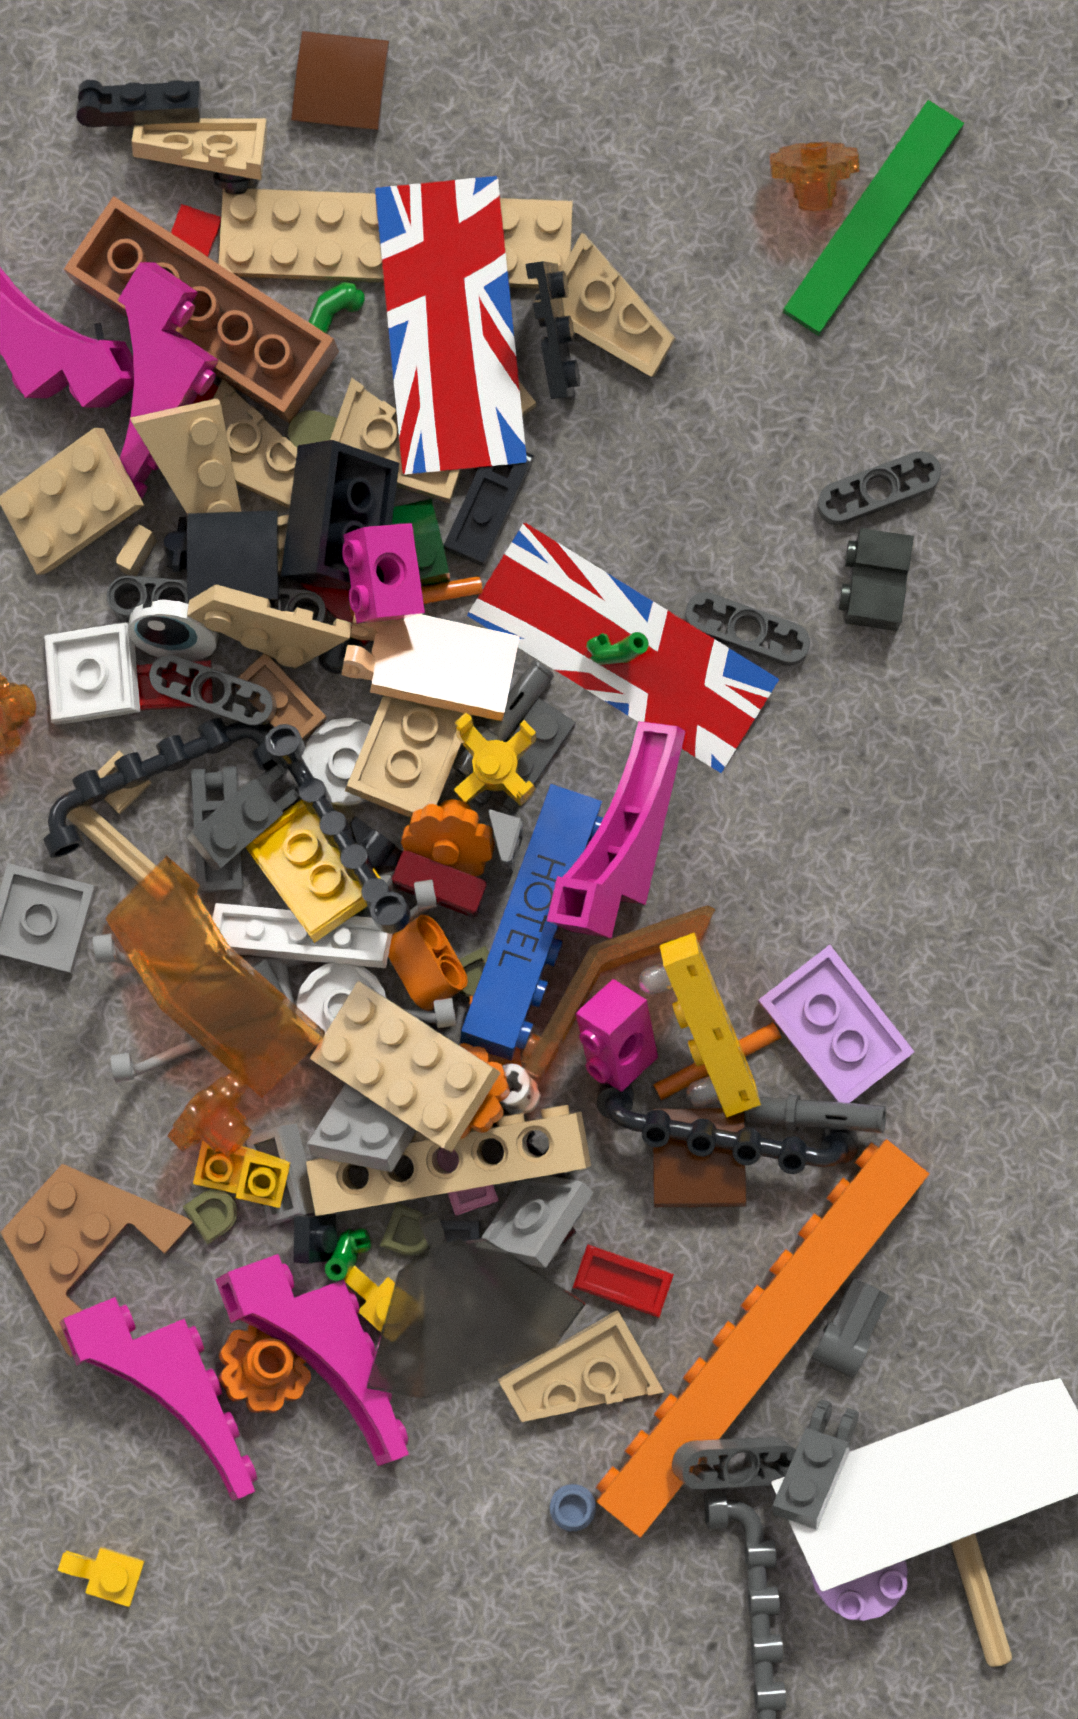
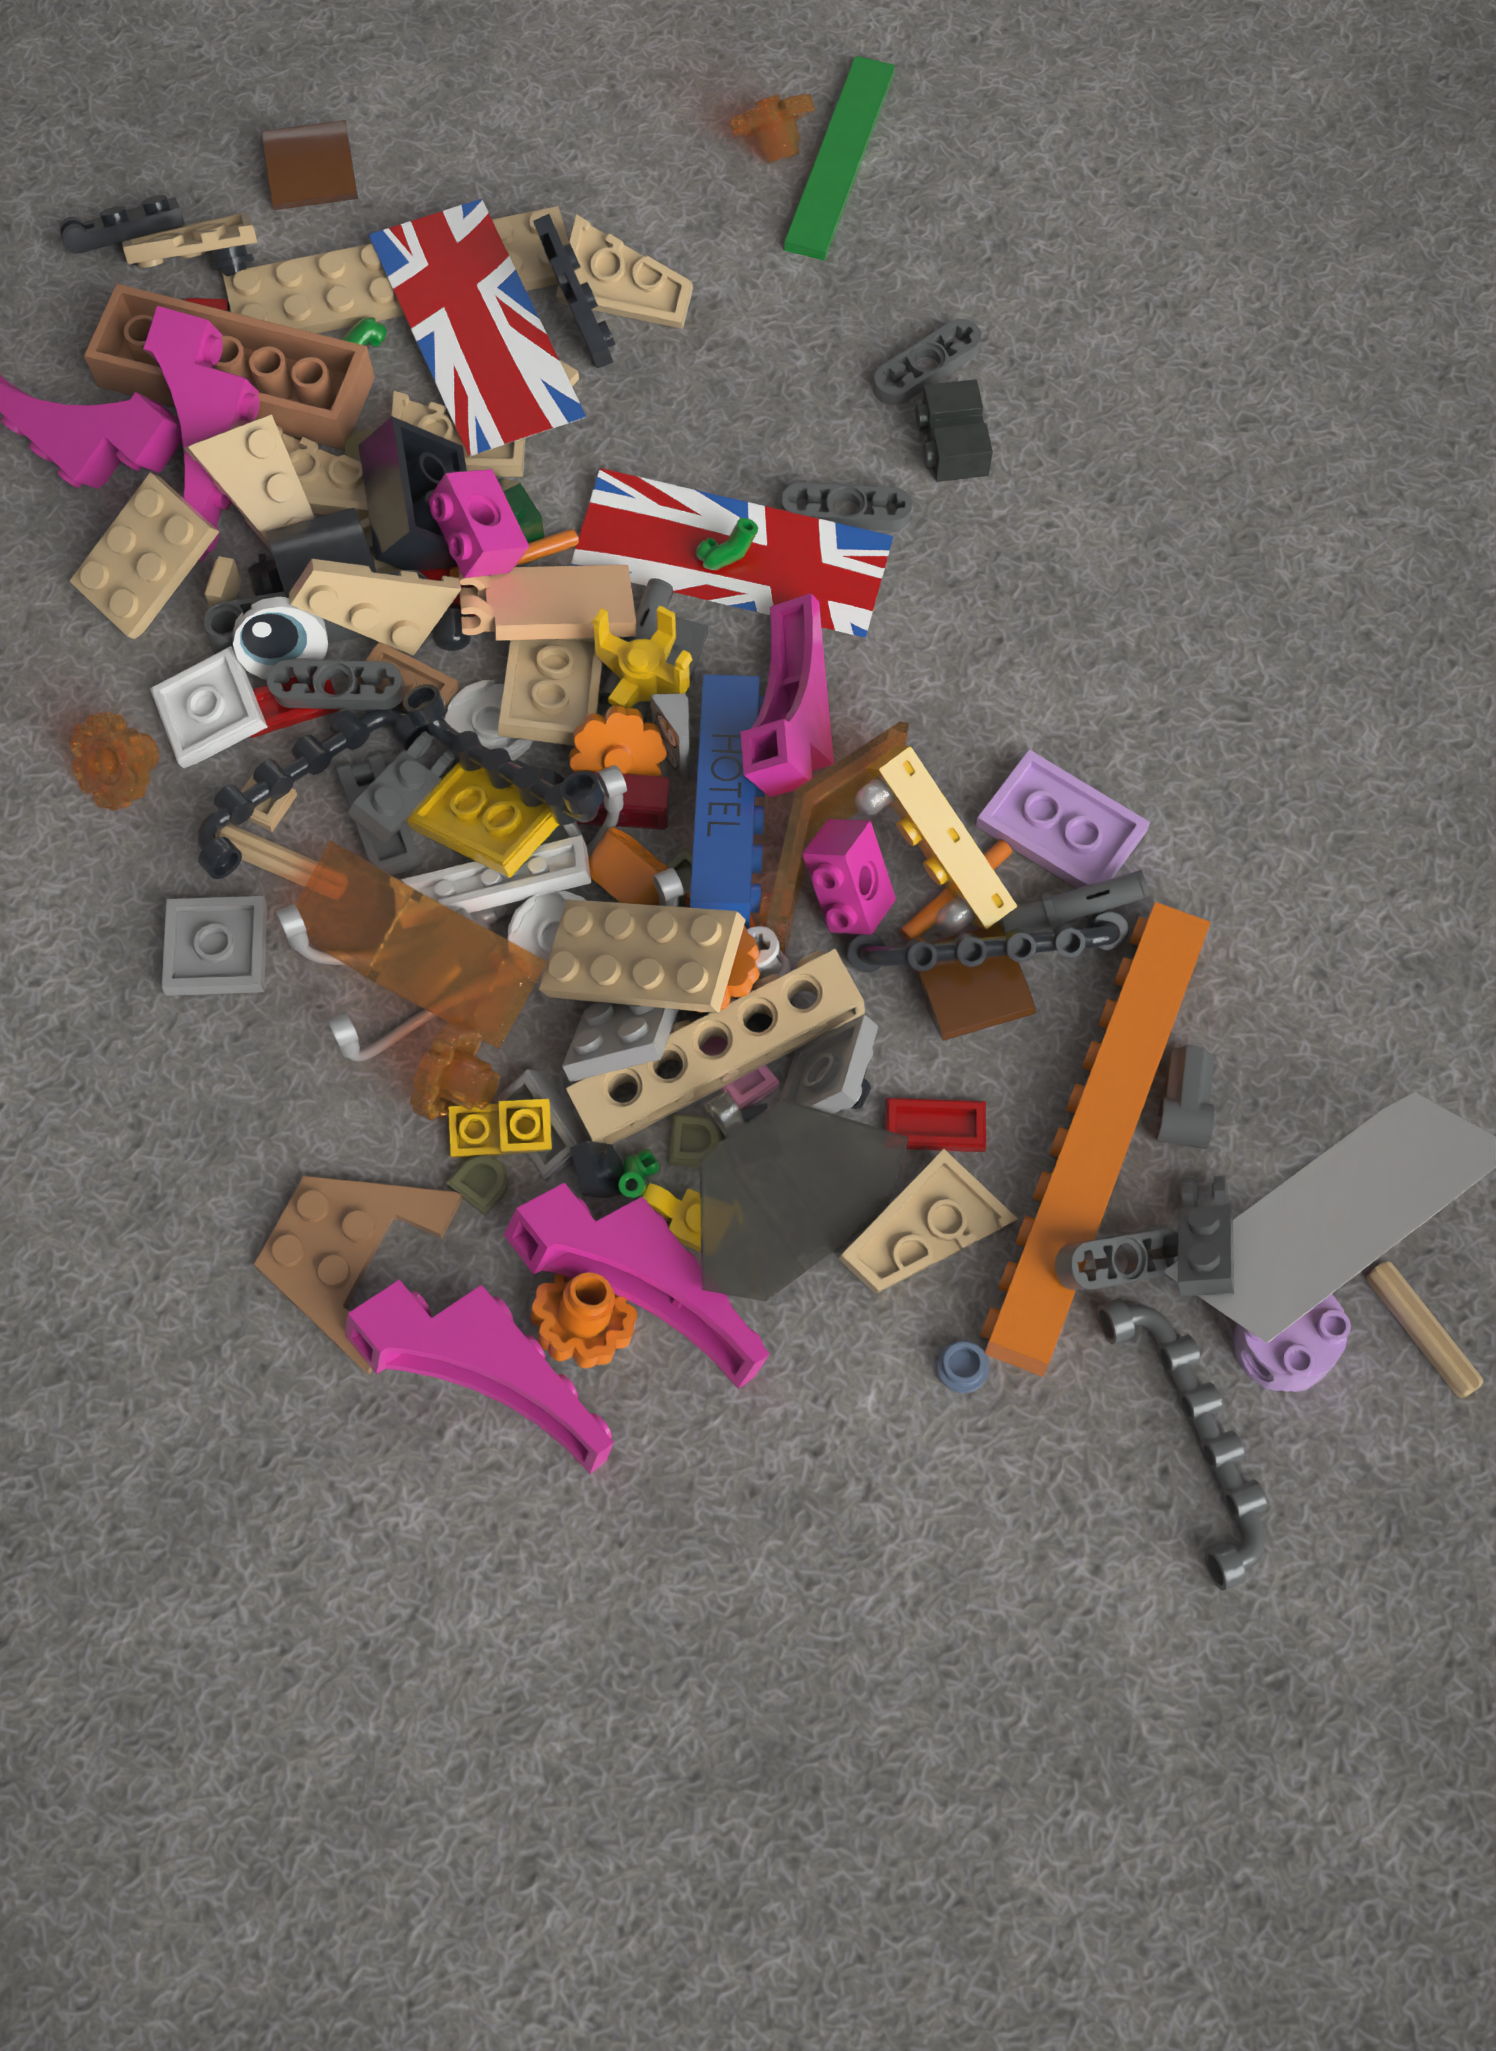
camera: 20 degrees left, 15 degrees down
(110, 1576) = (477, 1594): yellow plate -> none
(485, 511) = (560, 469): black plate -> none

